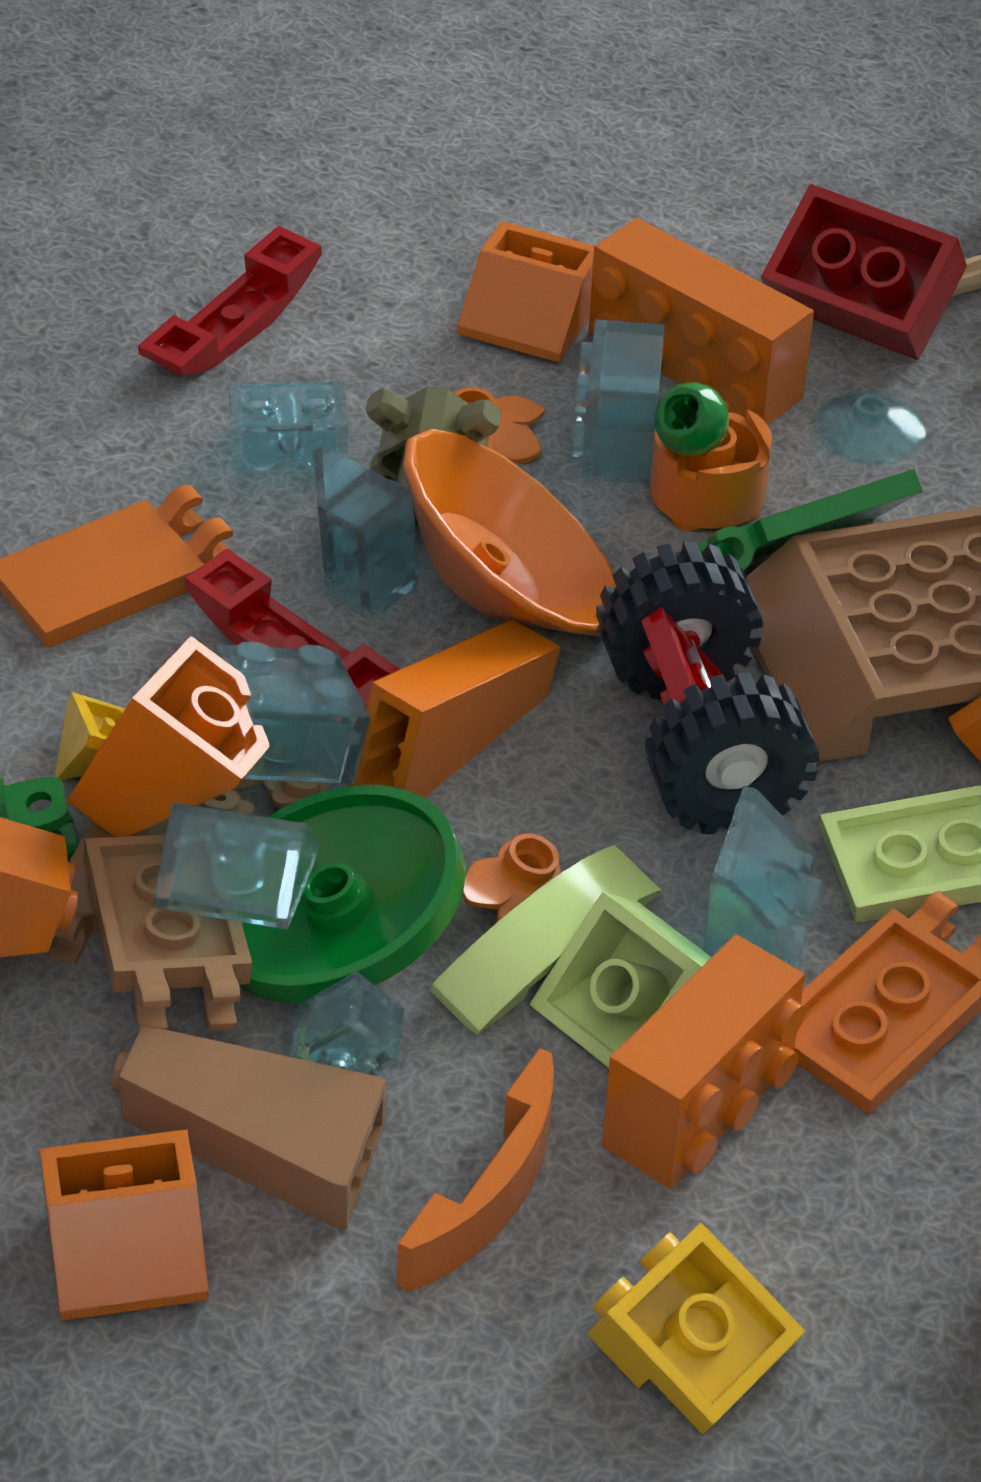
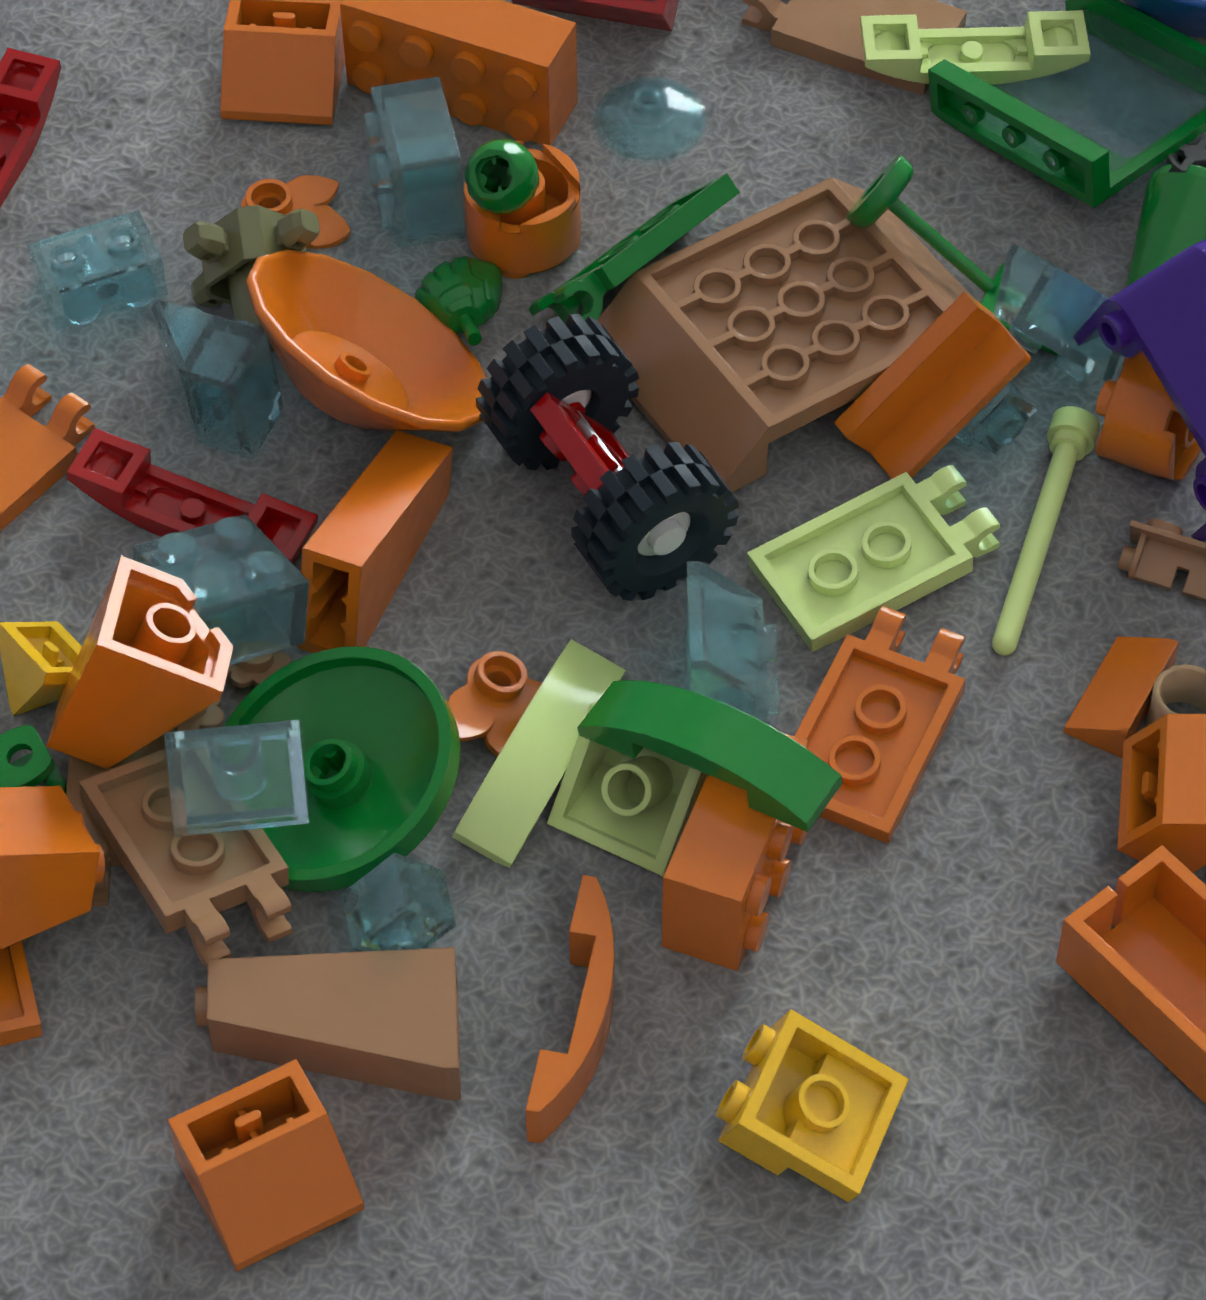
camera: 15 degrees left, 10 degrees up
(627, 528) = (462, 294): none -> green piece
(716, 947) = (717, 740): none -> green slope

